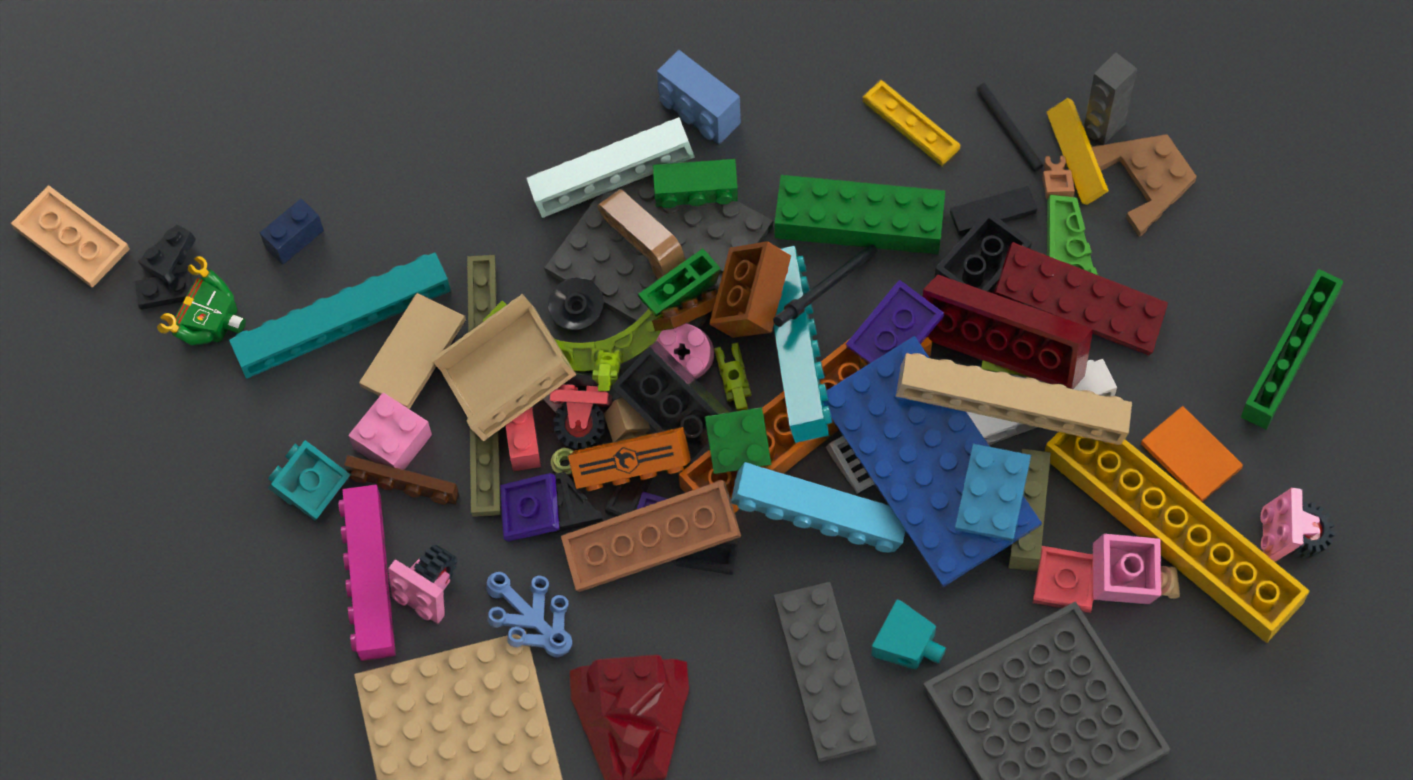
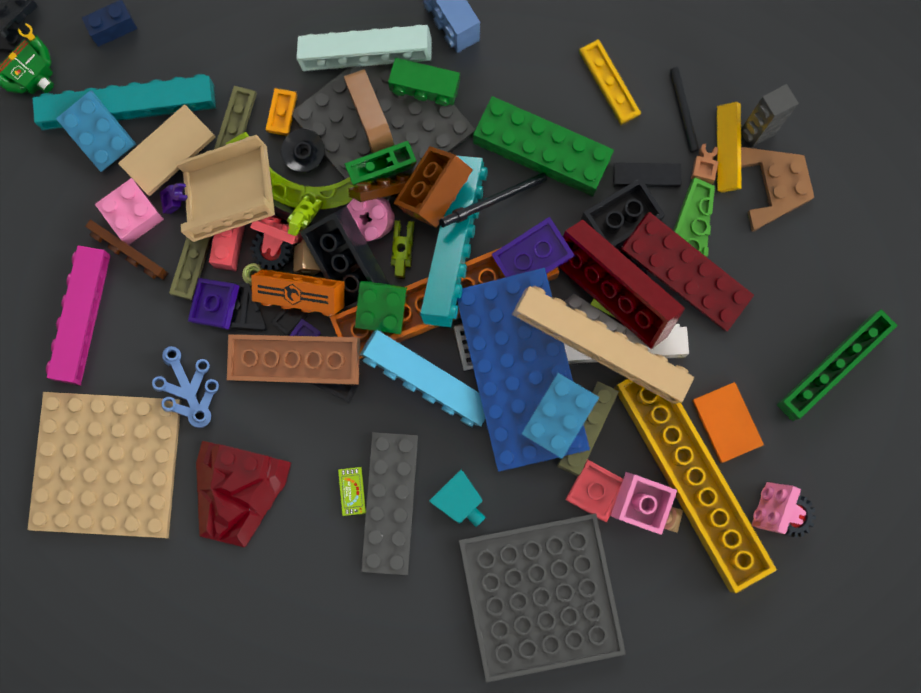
camera: 15 degrees right, 15 degrees up
(307, 479) = (57, 227): teal plate -> none
(319, 355) = (96, 131): none -> dark azure plate
(423, 582) = (115, 338): bright pink plate -> none
(436, 402) = (172, 197): none -> dark purple plate
(534, 270) = (281, 112): none -> light orange plate
(773, 671) = (352, 491): none -> lime tile

